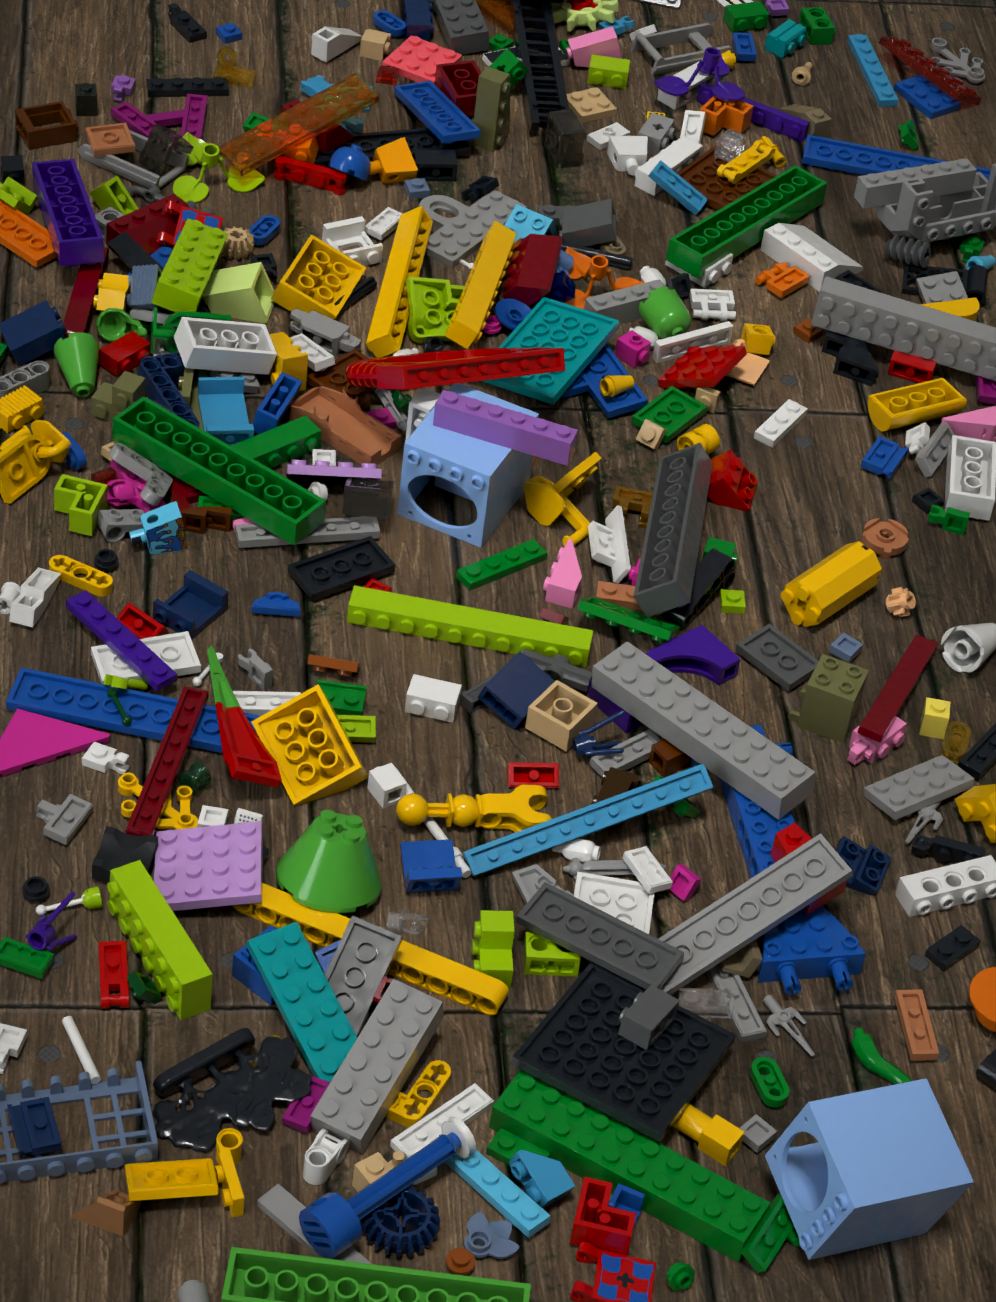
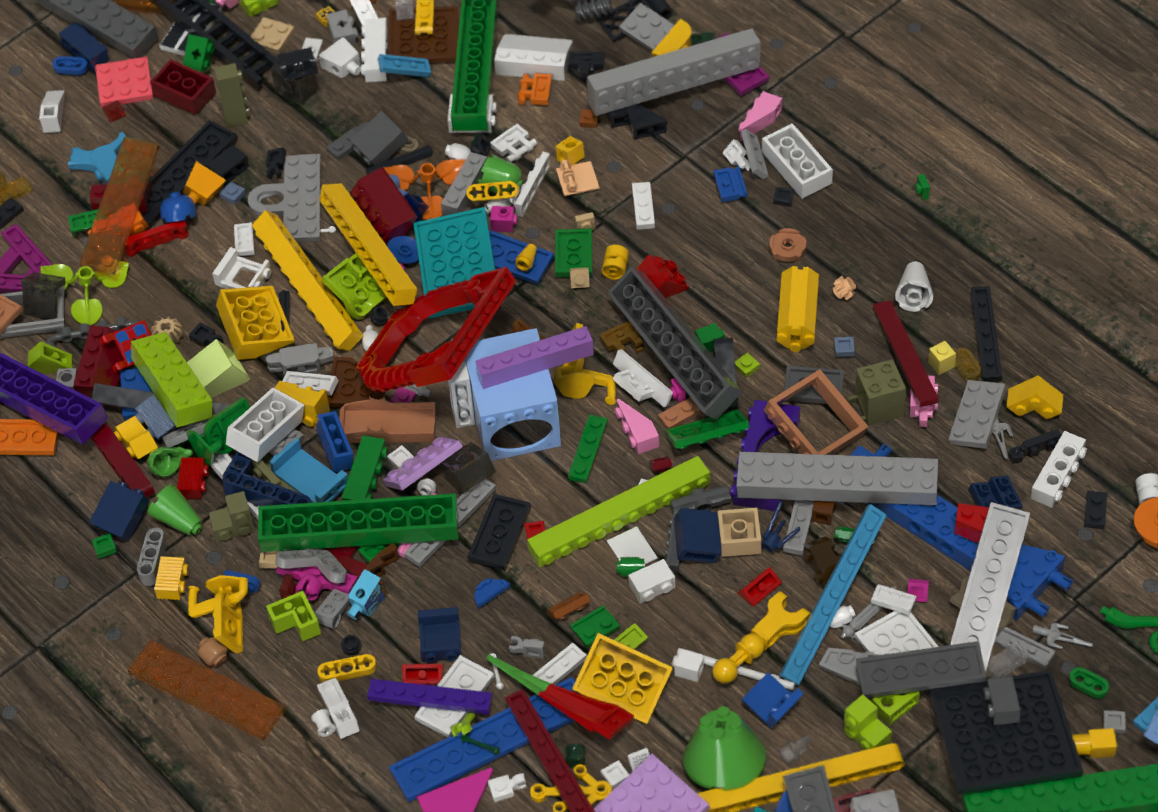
camera: 30 degrees left, 10 degrees up
(264, 229) = (171, 308): blue plate -> none
(375, 44) = (80, 91): tan brick -> none
(428, 669) = (629, 565): none -> green brick
(437, 112) = (185, 120): blue plate -> none
(449, 664) = (632, 545): none -> white sticker
(500, 42) = (161, 26): green plate -> none
(529, 222) = (341, 170): medium azure bracket -> none
(573, 120) = (297, 64): none -> black hinge
(649, 324) = (480, 197): none -> yellow beam
(702, 366) = (562, 201): red plate -> none
(779, 643) = (833, 399): none -> nougat window
(911, 367) = (680, 100): red brick -> none
(914, 404) = (711, 129): yellow brick -> none
(916, 1025) = (1127, 578): nougat plate -> none
(952, 520) = (813, 202): green plate -> none

